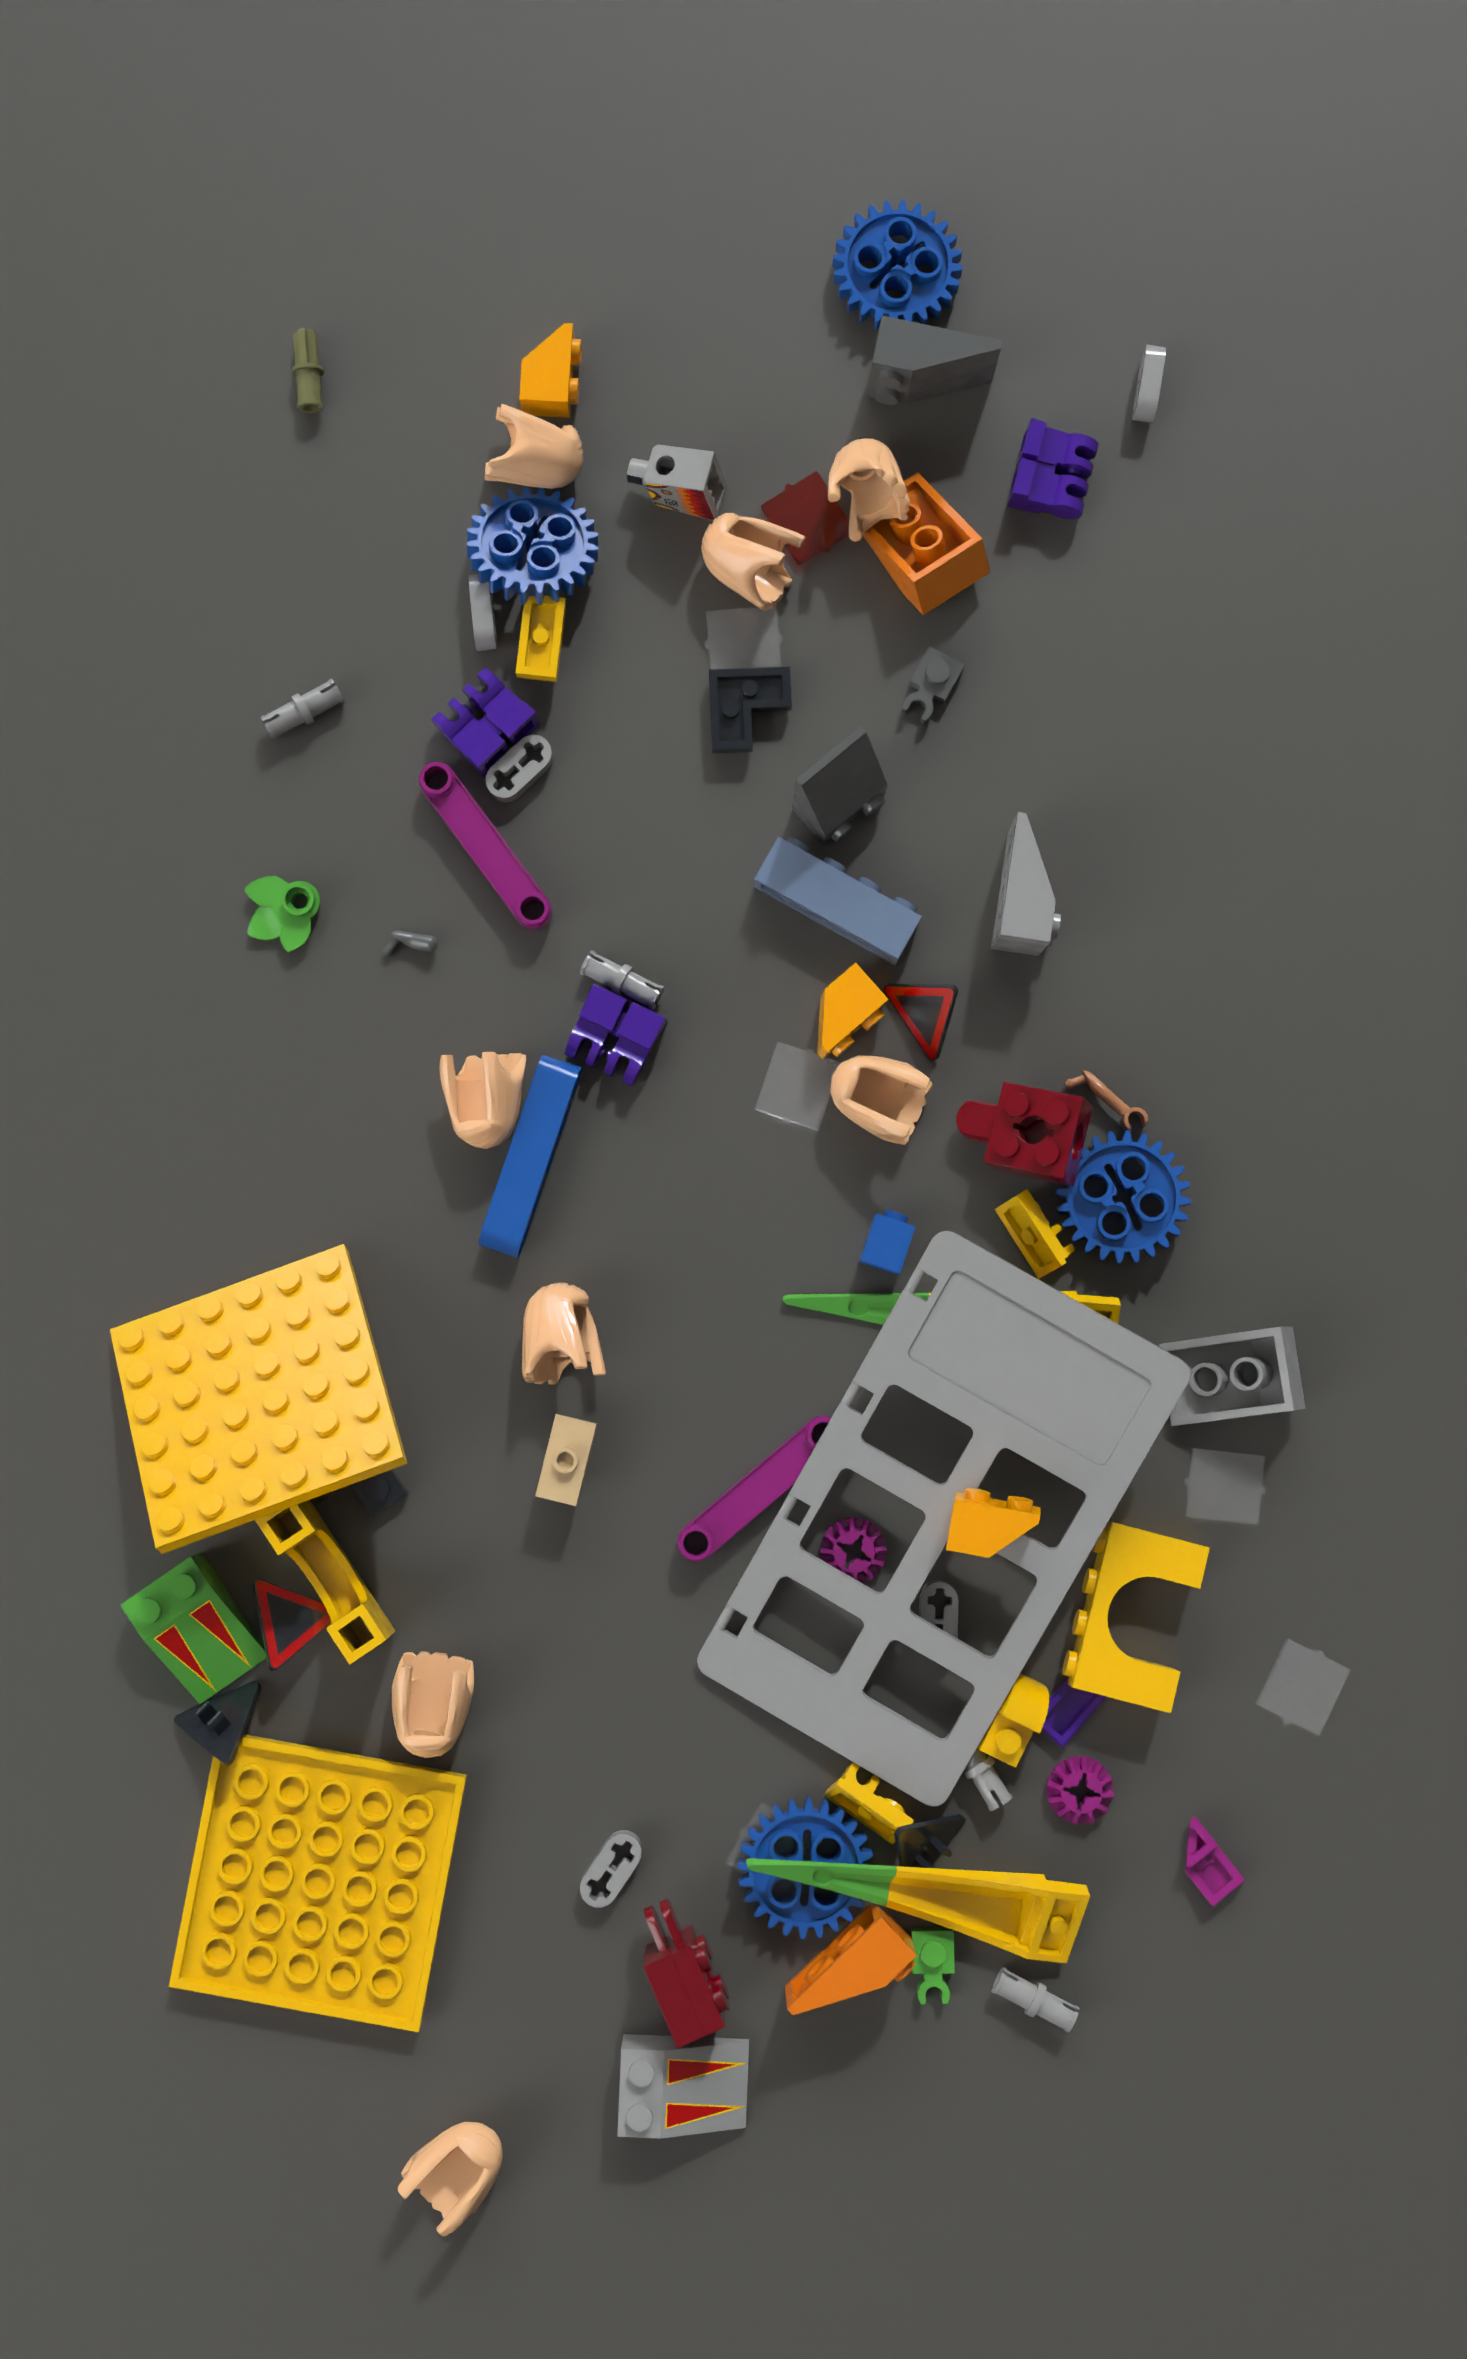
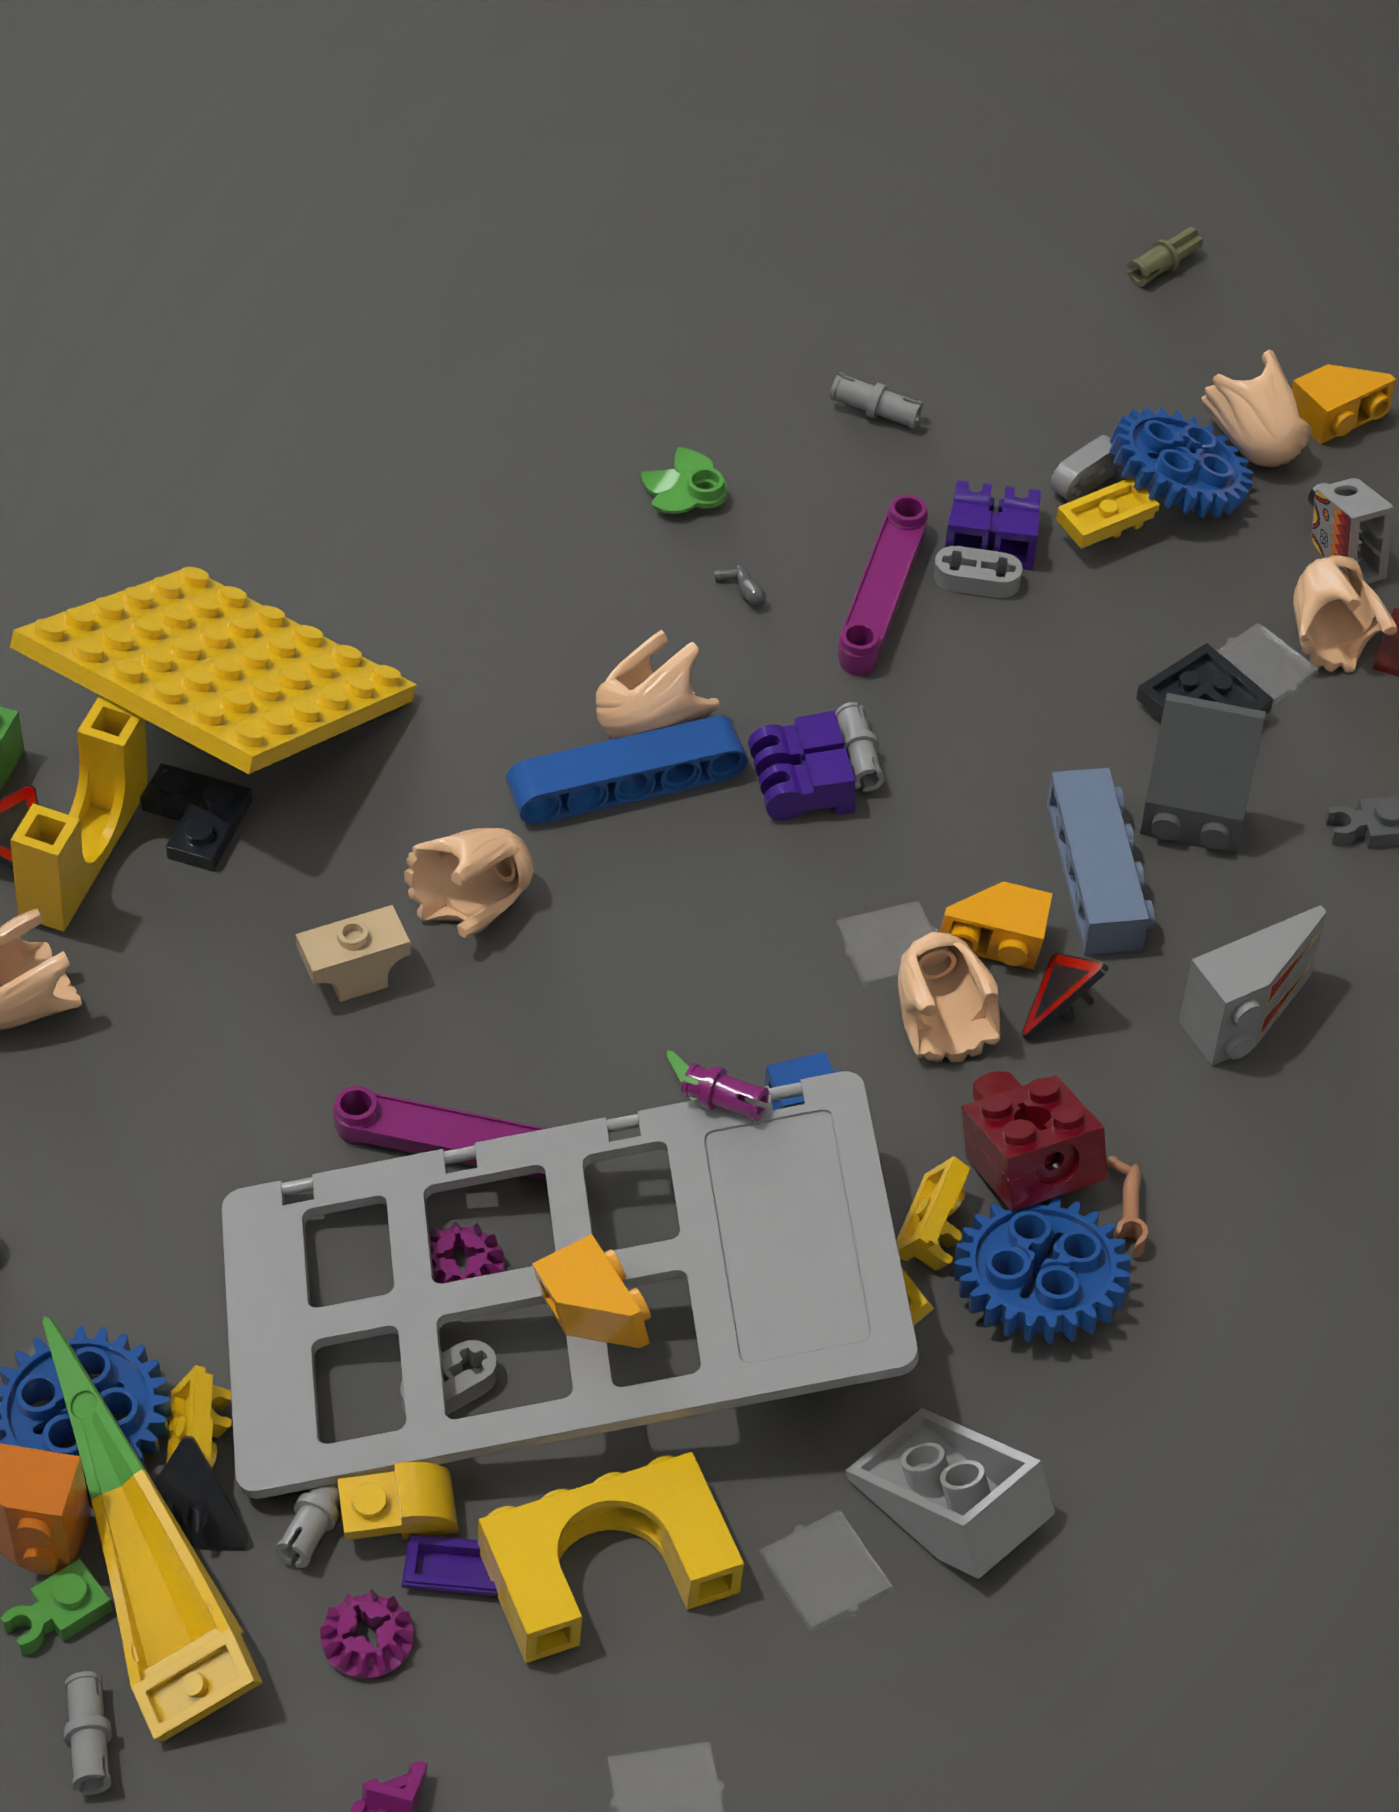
camera: 55 degrees right, 35 degrees down
(895, 1326) = (724, 1091): none -> magenta pin

